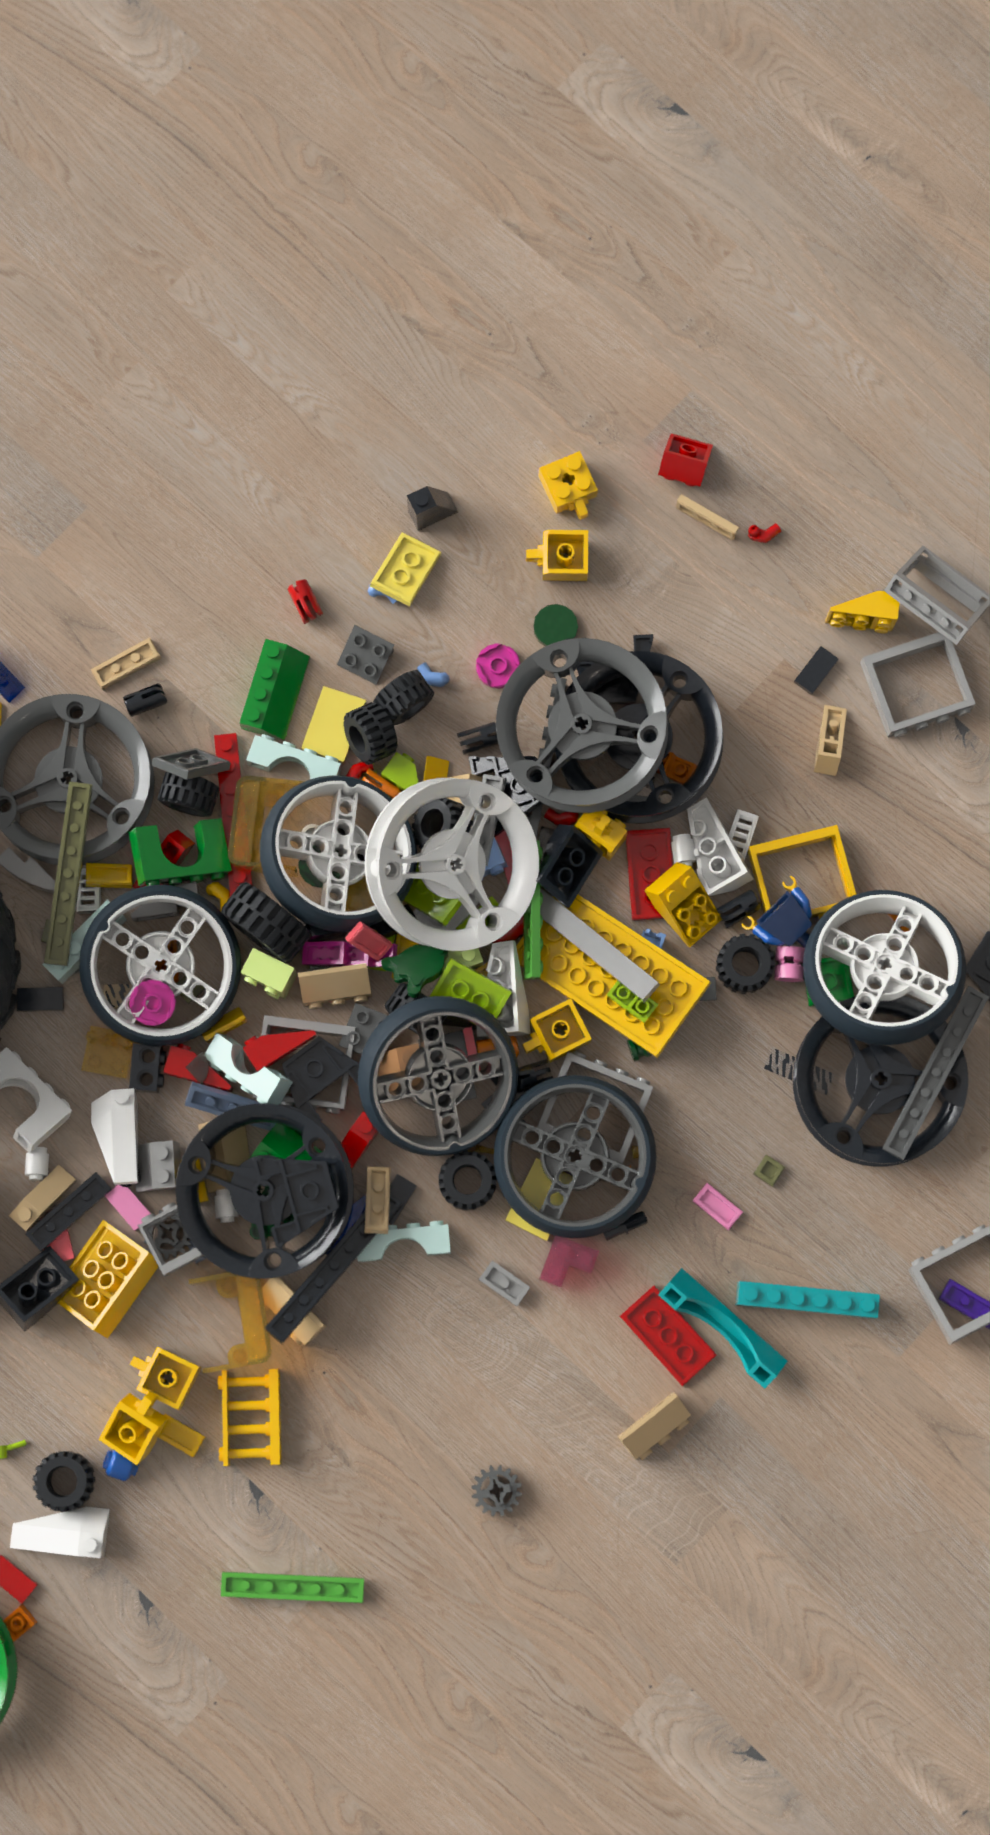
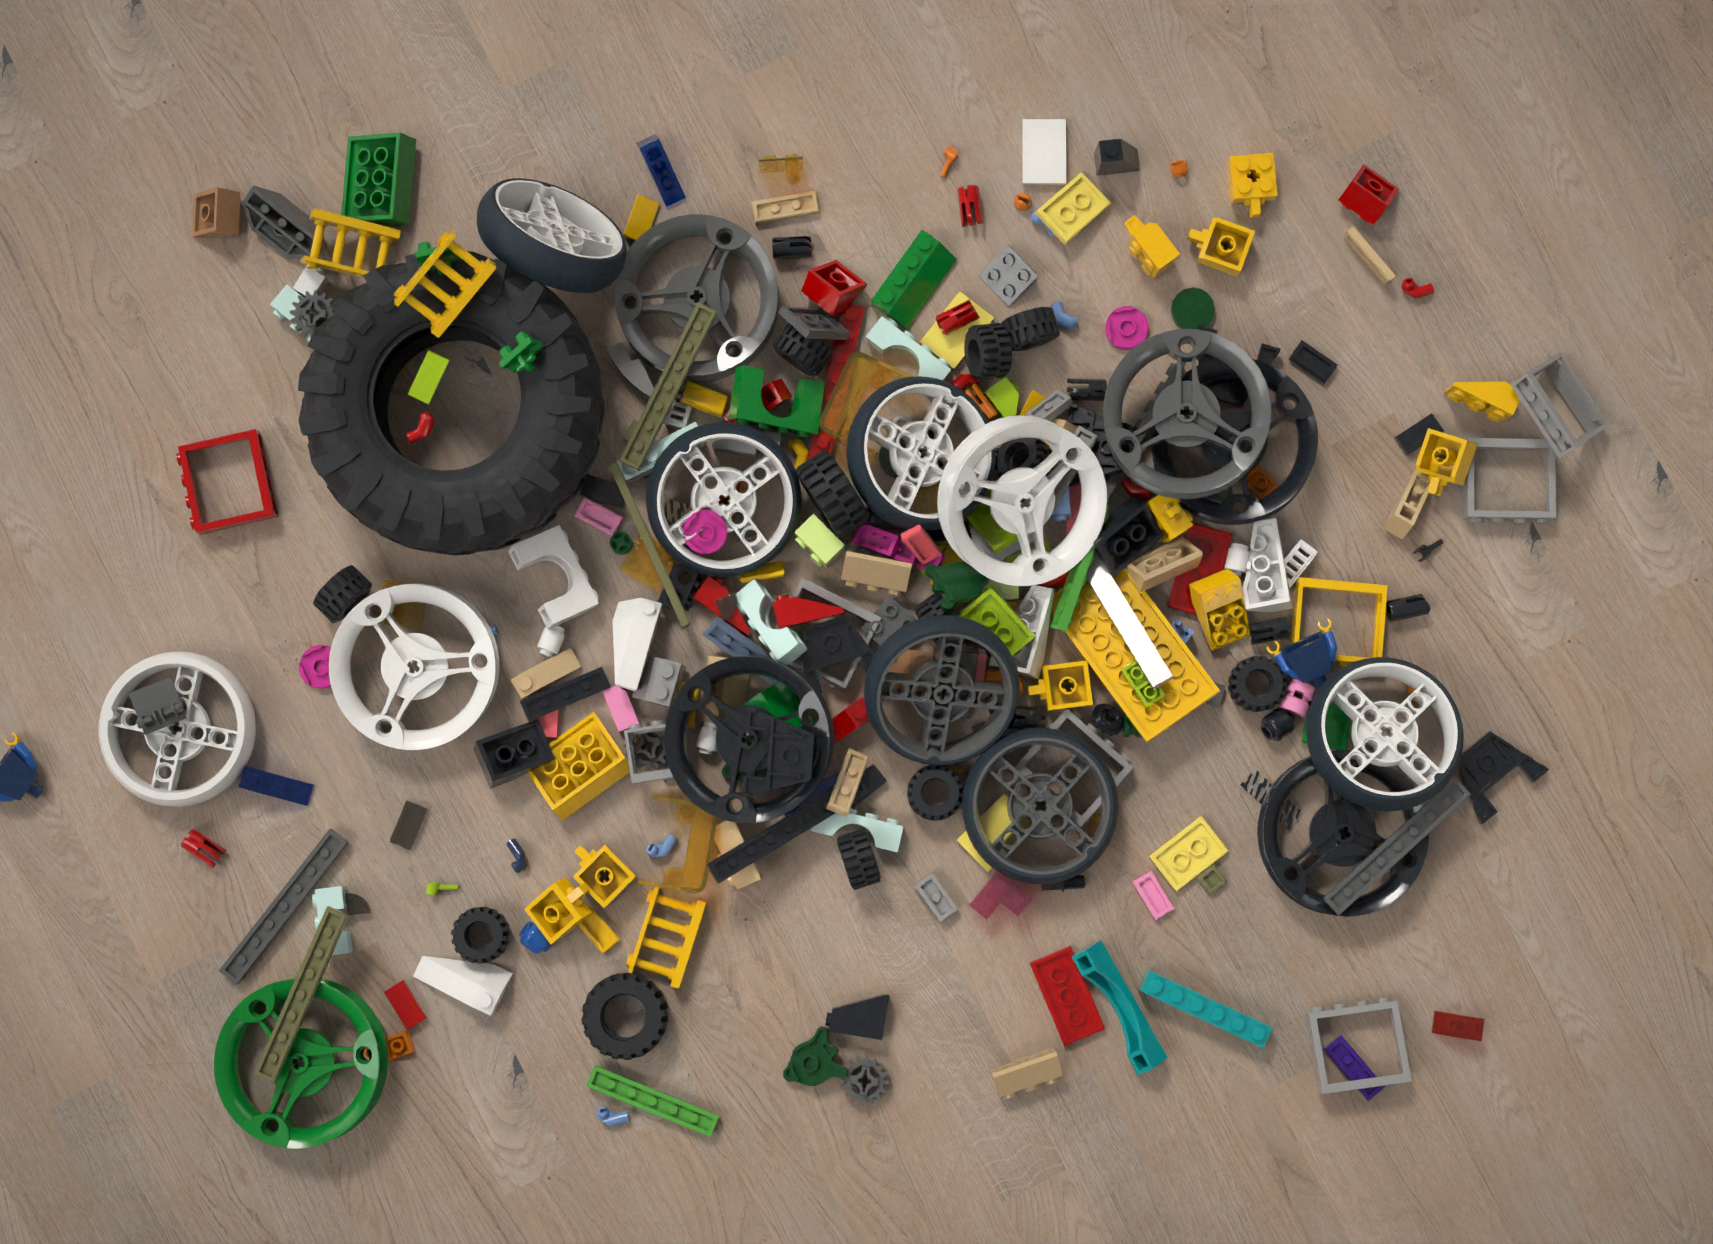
camera: 15 degrees right, 5 degrees up
(43, 1026) = (598, 516): none -> bright pink tile
(71, 1041) = (617, 541): none -> dark green wheel
(74, 1386) = (518, 853): none -> dark blue arm
(103, 1035) = (650, 546): none -> olive tile
(115, 620) = (790, 164): none -> clear yellow hinge
(198, 724) = (833, 287): none -> red slope
(203, 1511) = (603, 1038): none -> black tyre
(217, 1332) = (663, 849): none -> medium blue arm
(257, 1620) = (610, 1118): none -> medium blue arm
(270, 558) = (951, 154): none -> orange hand
(329, 711) = (957, 317): none -> red arm
(355, 583) = (1020, 205): none -> orange hinge
(359, 525) = (1044, 152): none -> white tile
(414, 1272) = (858, 859): none -> black tyre
(439, 1489) = (813, 1061): none -> dark green tile
(451, 764) = (1051, 406): none -> light grey plate
(471, 1430) = (860, 1018): none -> black slope
(493, 579) = (1150, 246): none -> yellow hinge
(495, 496) = (1179, 168): none -> orange hinge
(613, 879) = (1164, 563): none -> tan slope
(615, 1044) = (1111, 714): none -> black gear
(689, 636) = (1313, 361): none -> black tile
(737, 1153) = (1188, 853): none -> light yellow tile
(779, 997) = (1277, 724): none -> black head
(848, 685) = (1442, 470): none -> yellow hinge
(862, 779) = (1426, 550): none -> black hand
(864, 840) = (1407, 607): none -> black arm

